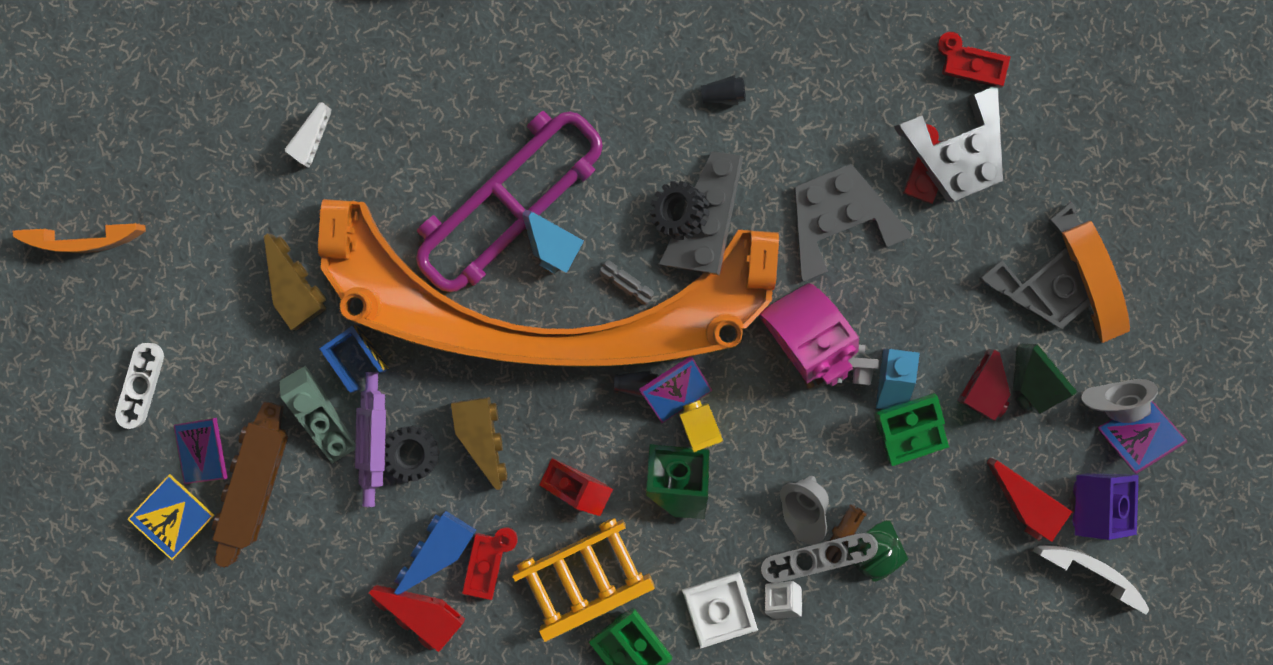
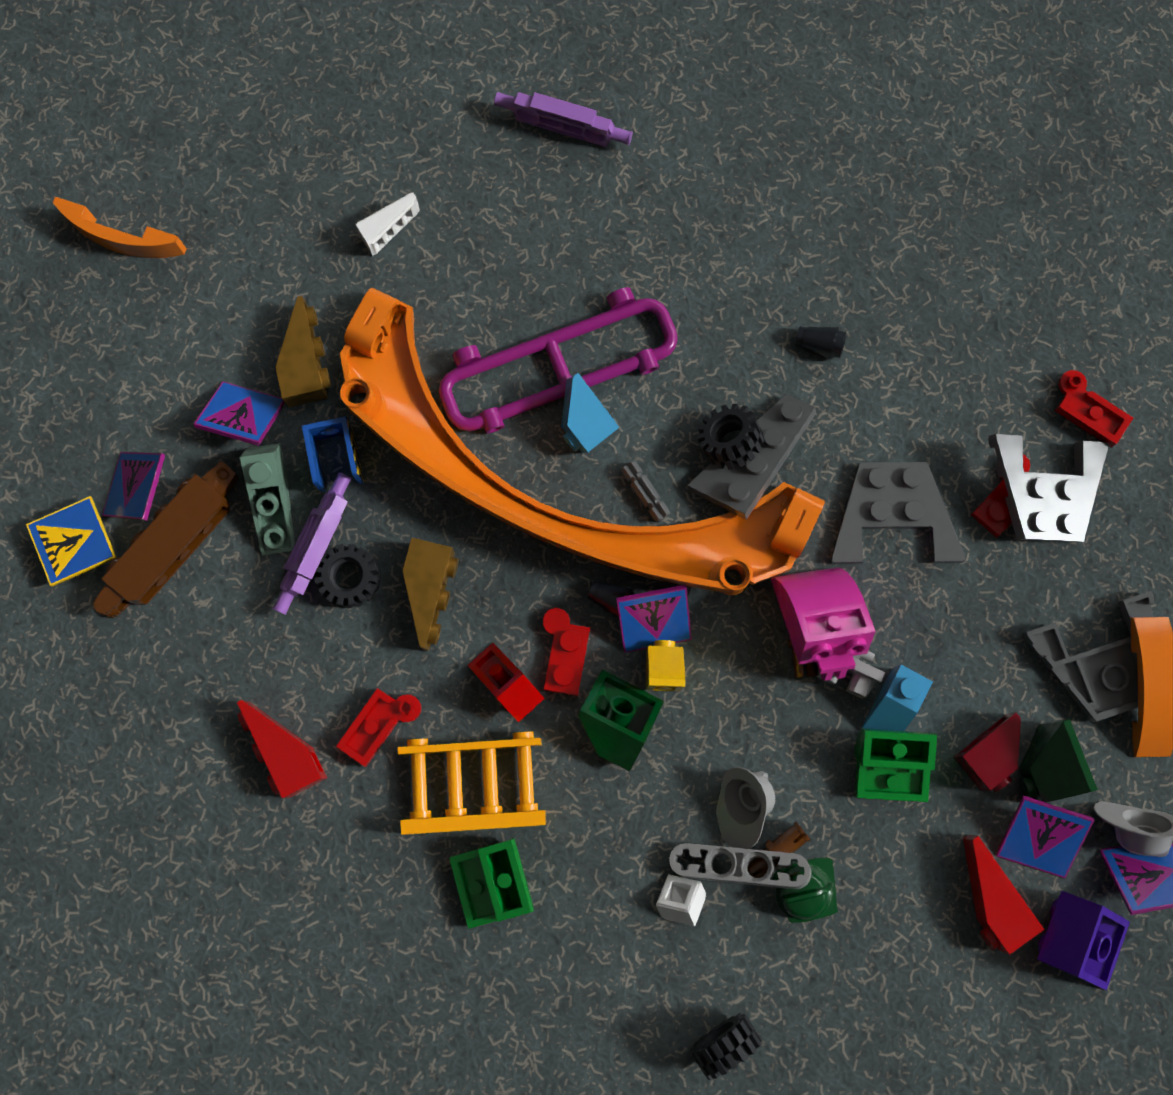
camera: 20 degrees right, 10 degrees down
(140, 409) = (91, 398): white beam -> none
(260, 354) = (240, 413): none -> piece
(443, 547) = (335, 688): blue slope -> none
(615, 443) = (566, 654): none -> red hinge
(720, 610) = (607, 882): white tile -> none
(1050, 437) = (1044, 836): none -> piece
(1123, 590) = (1073, 1048): white slope -> none

